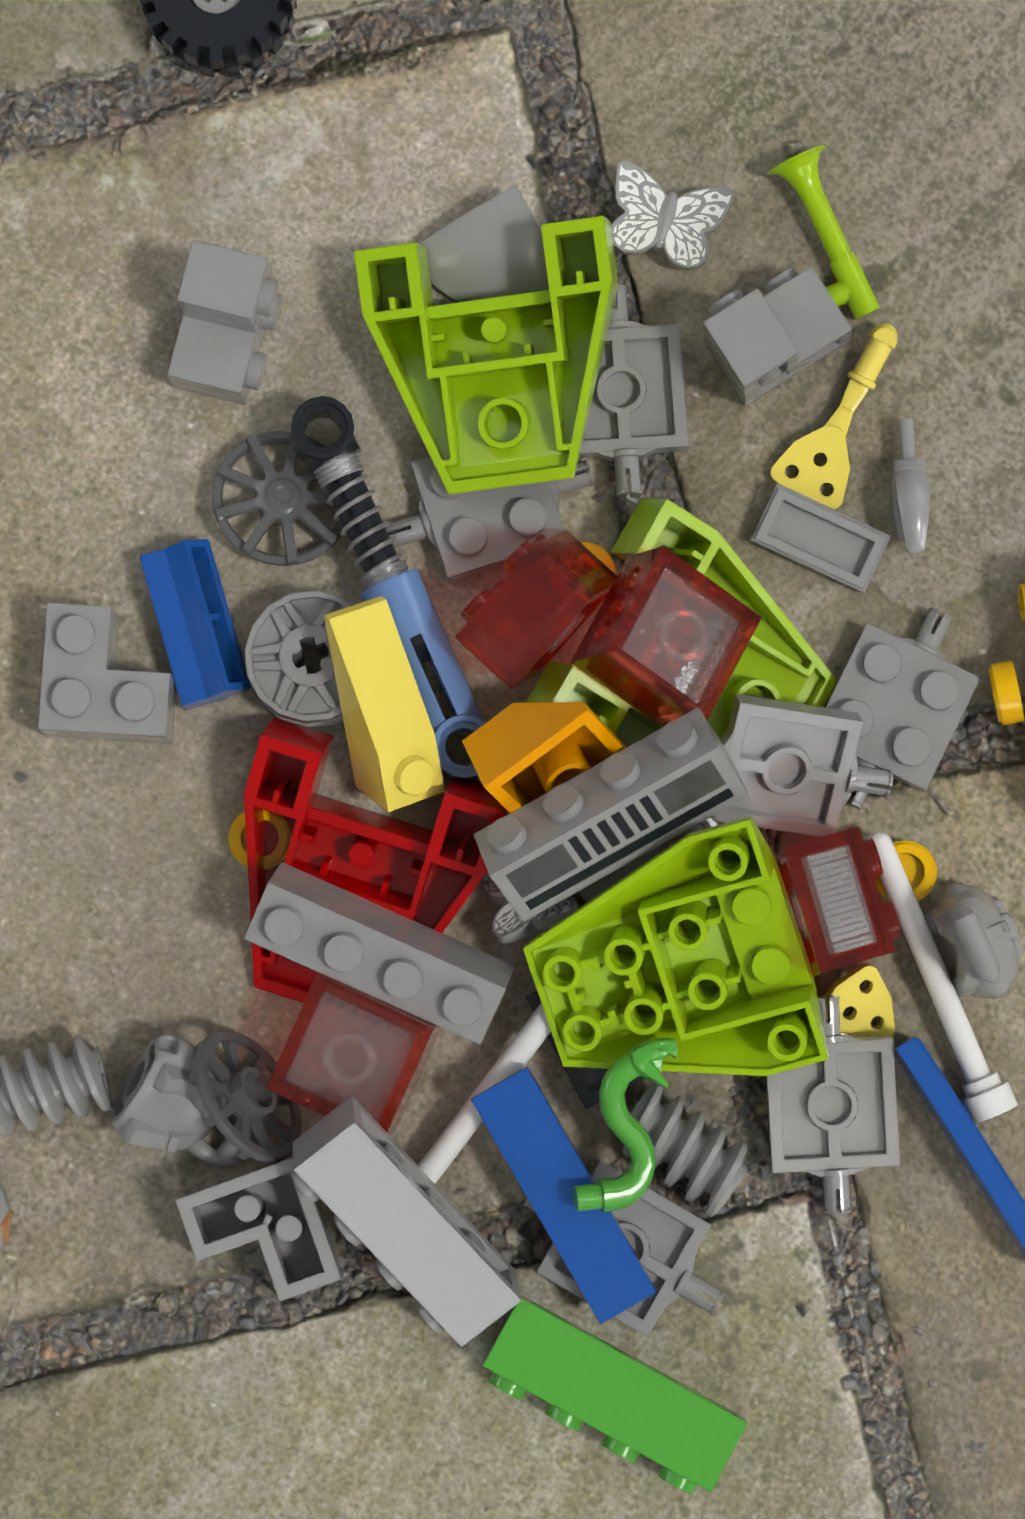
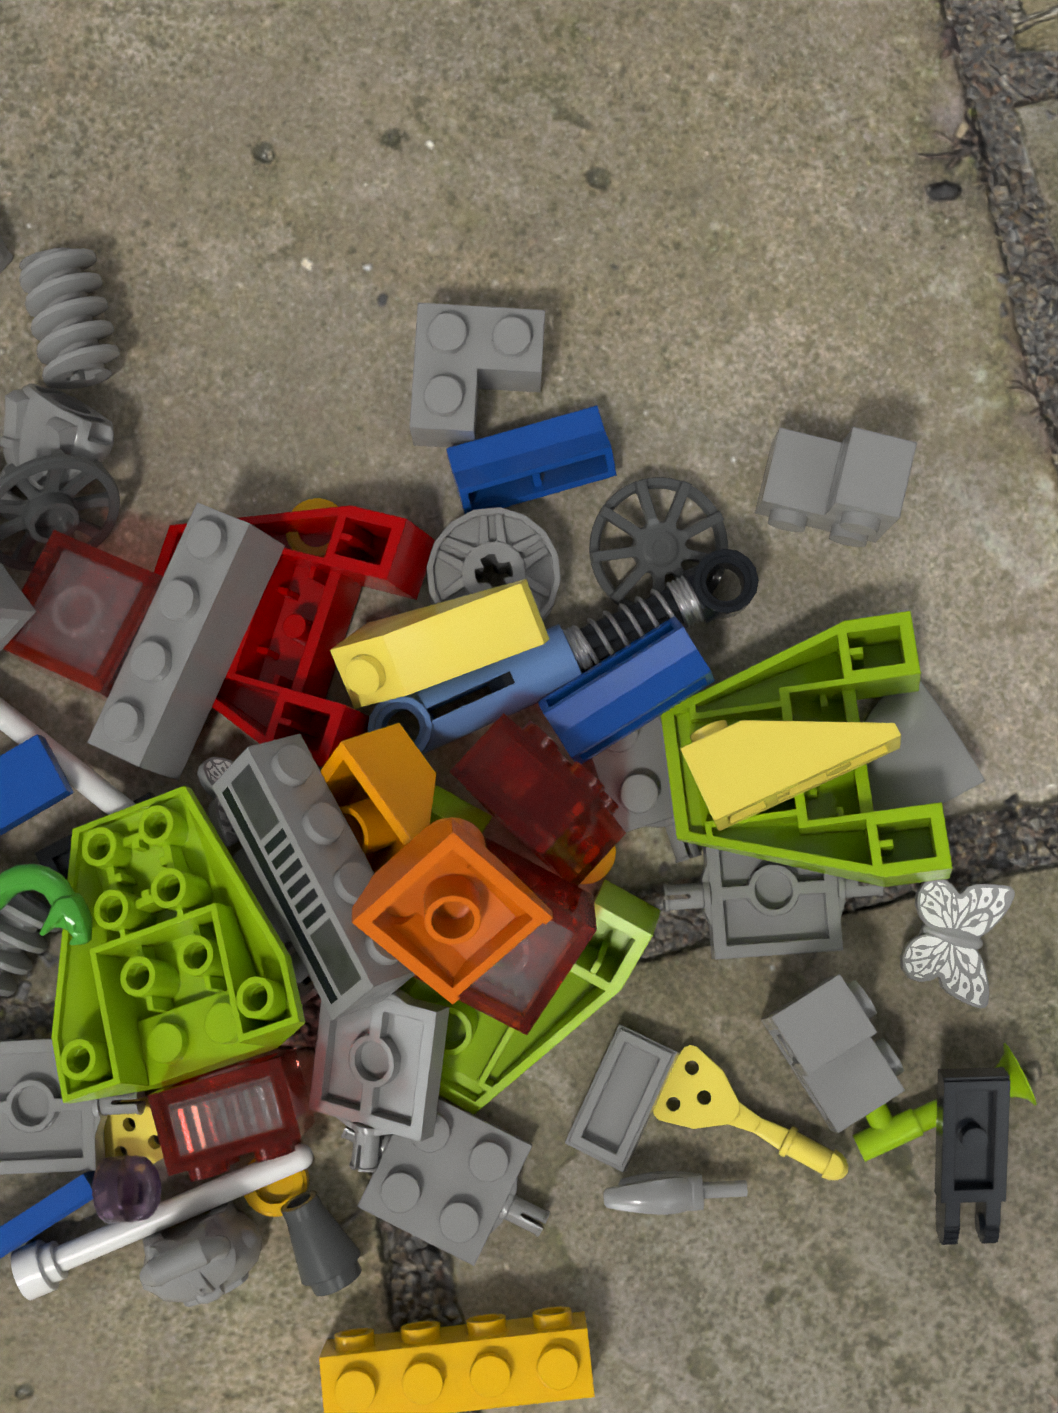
camera: 85 degrees right, 0 degrees up
(428, 525) = (626, 691): none -> blue piece
(502, 388) = (768, 762): none -> light yellow slope
(643, 677) = (448, 907): none -> orange slope
(867, 206) = (971, 1149): none -> black hinge
(910, 1016) = (126, 1189): none -> tile
(963, 824) = (320, 1245): none -> dark grey cone
(1005, 692) = (458, 1292): yellow tile -> none

